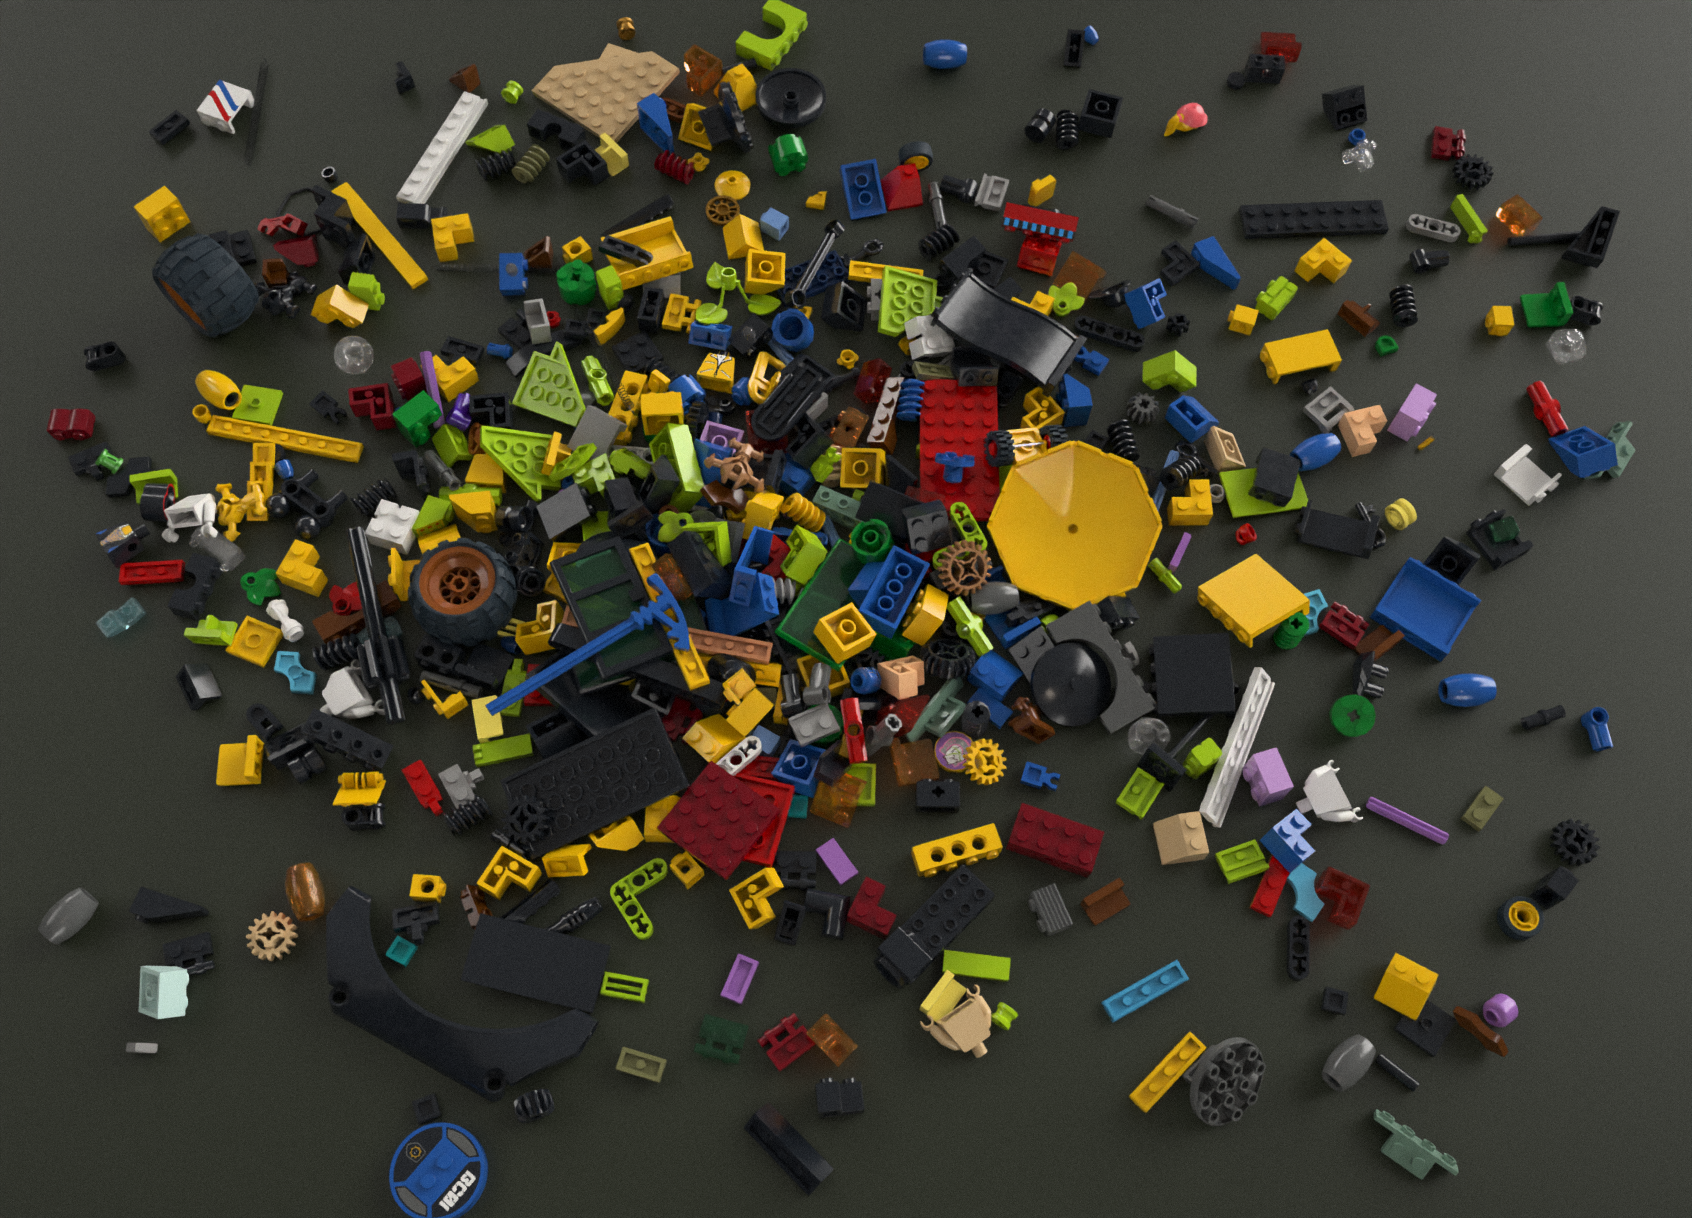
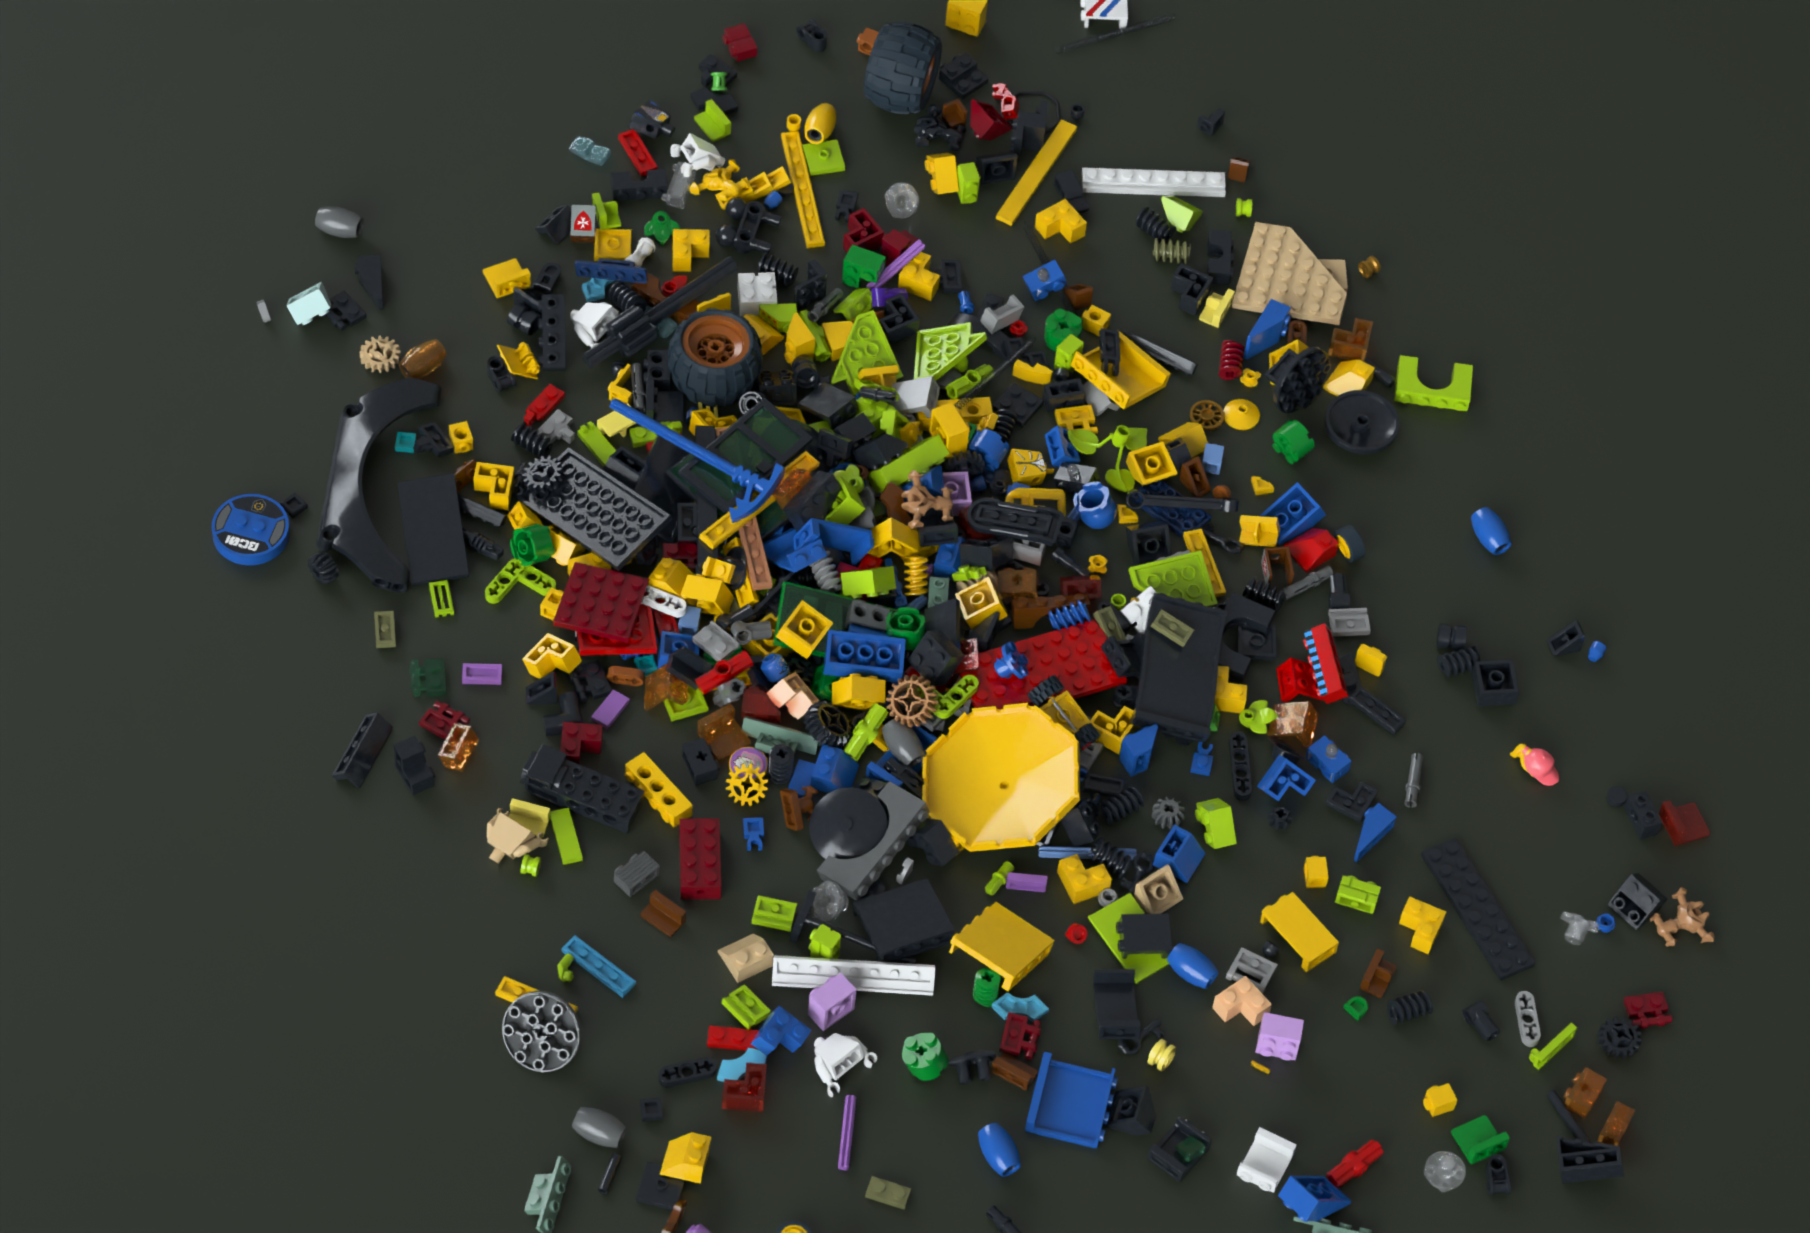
camera: 65 degrees right, 10 degrees down
(144, 309) = (866, 40): none -> dark orange brick
(155, 500) = (700, 125): black piece -> none
(217, 658) = (583, 223): none -> piece
(294, 650) = (612, 270): none -> dark blue bracket
(586, 460) = (877, 394): none -> black axle
(609, 864) = (532, 544): none -> green brick
(638, 452) = (910, 432): none -> yellow plate
(763, 241) = (1178, 452): none -> black brick
(790, 245) = (1194, 477): none -> reddish brown slope
(804, 830) = (625, 676): none -> dark orange beam
(815, 231) = (1221, 491): none -> dark orange plate
(846, 569) = (868, 613): none -> dark grey brick
(870, 219) = (1259, 530): none -> yellow panel
(900, 357) = (1118, 601): none -> lime hose
(917, 213) = (1284, 558): none -> reddish brown piece
(973, 316) = (1172, 628): none -> olive plate
(1092, 208) = (1377, 710): none -> black tile
(1130, 263) = (1329, 759): none -> blue piece
(1138, 1028) = (563, 965): none -> lime arm
(1372, 81) = (1688, 918): none -> medium nougat piece
(1558, 208) = (1616, 1124): none -> clear orange brick

